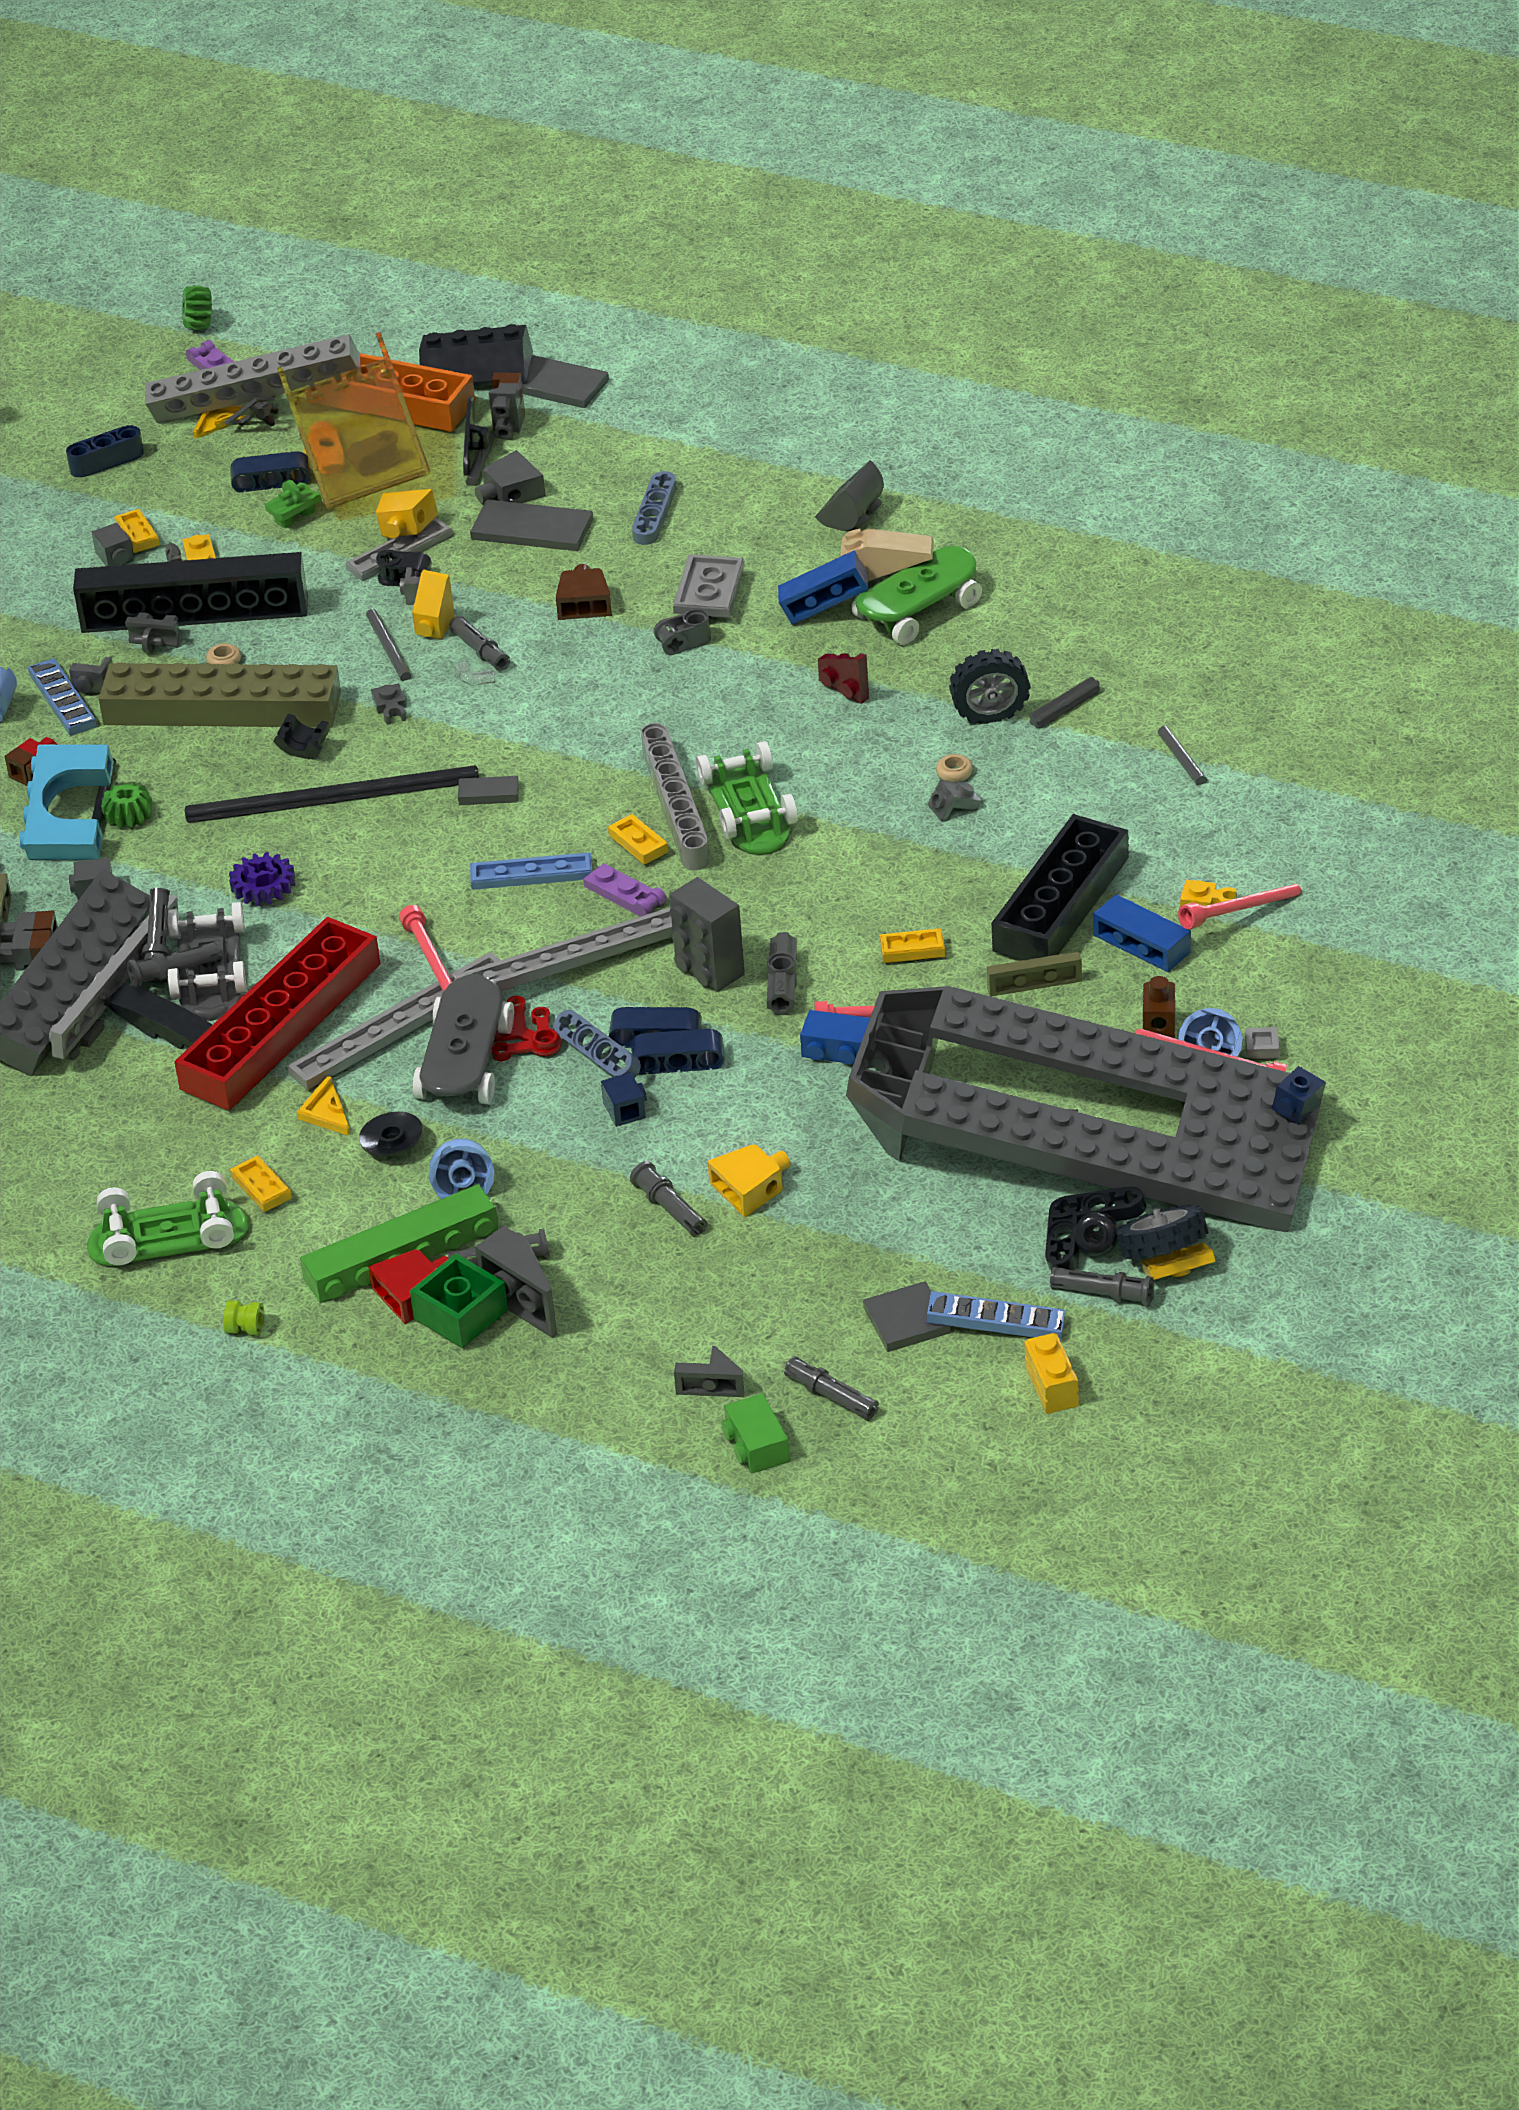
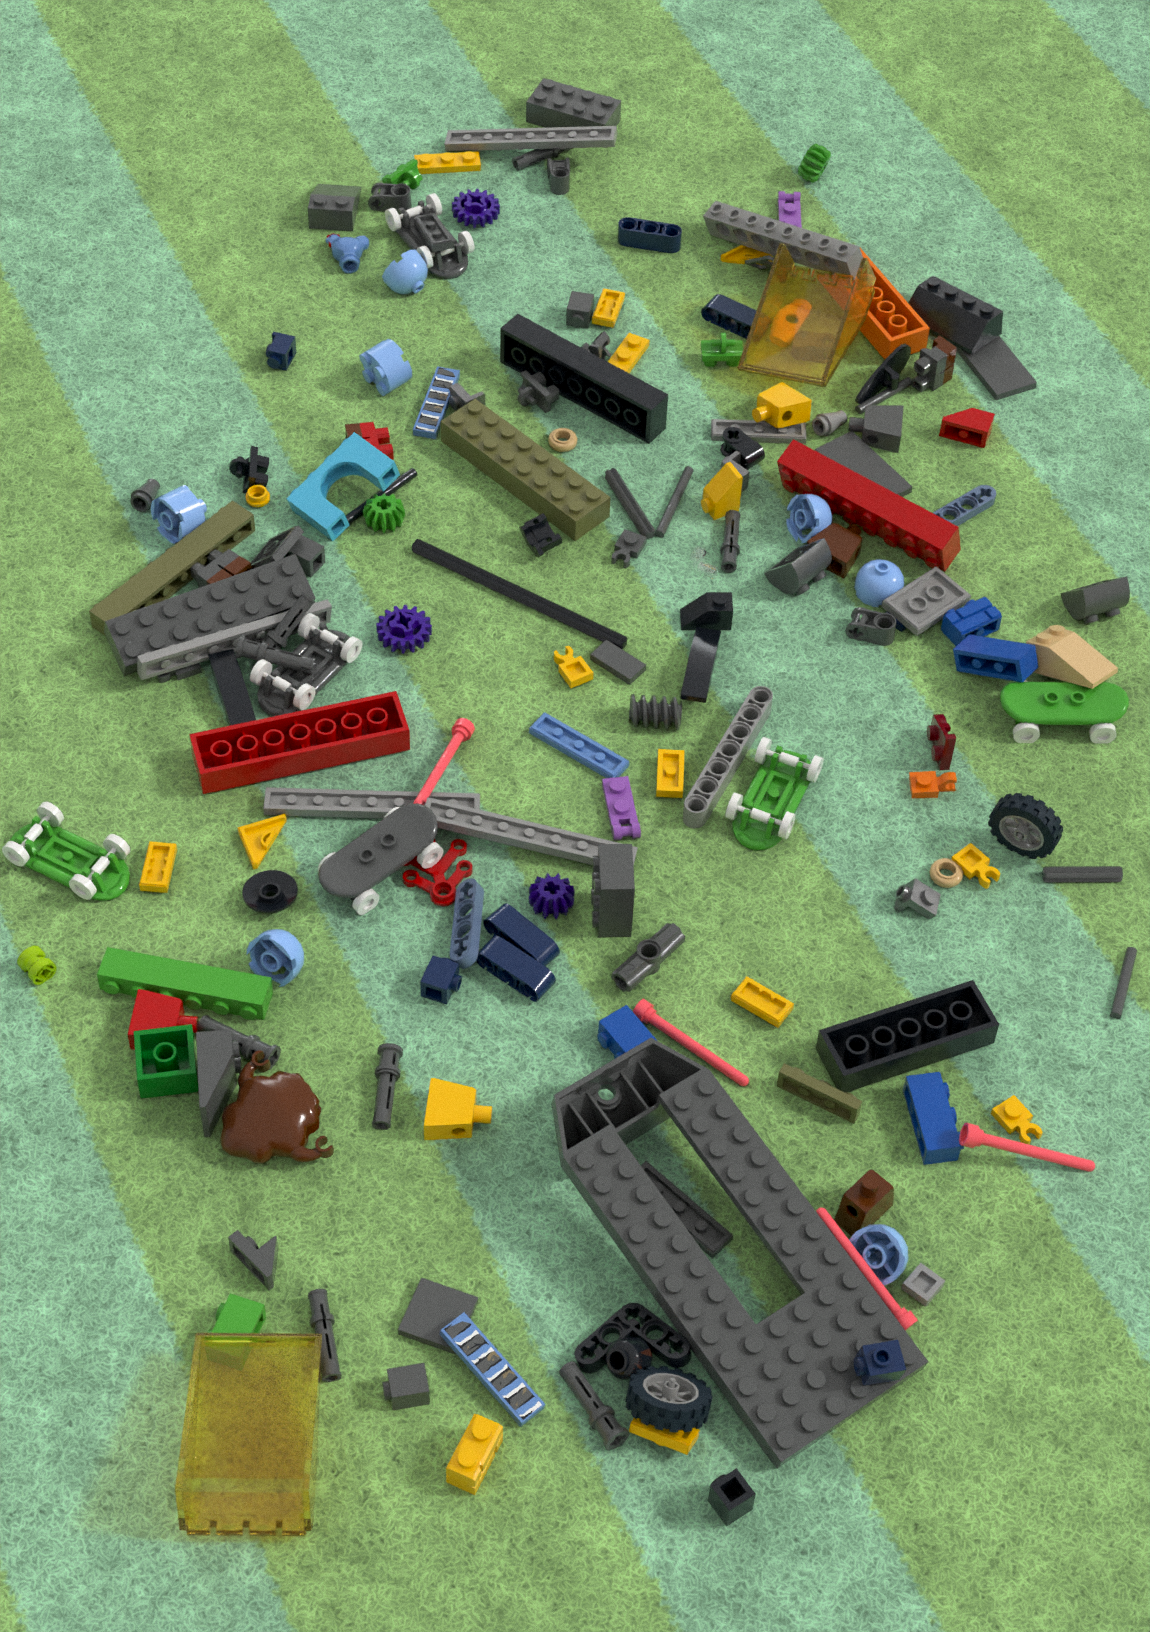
camera: 35 degrees right, 10 degrees up
(64, 886) = (277, 547): none -> dark grey tile
(351, 668) = (629, 503): none -> dark grey axle
(456, 818) = (573, 670): none -> yellow plate
(457, 505) = (827, 423): none -> light grey cone
(528, 704) = (708, 611): none -> black slope
(530, 578) = (806, 513): none -> light blue cylinder
(569, 623) = (799, 567): none -> dark grey brick
(569, 801) = (655, 711): none -> dark grey piece
(570, 746) = (700, 665): none -> black slope
(575, 537) = (870, 506): none -> red brick
(590, 437) = (968, 426): none -> red slope
(604, 1274) = (272, 1117): none -> reddish brown piece
(645, 983) = (551, 895): none -> dark purple gear
(649, 596) = (878, 581): none -> light blue cylinder
(762, 579) = (973, 618): none -> blue brick
(866, 718) = (927, 785): none -> orange plate
(867, 1475) = (250, 1435): none -> clear yellow windscreen
(943, 1370) = (407, 1386): none -> dark grey brick
(974, 747) = (976, 864): none -> yellow plate
(1280, 1261) = (731, 1496): none -> black brick

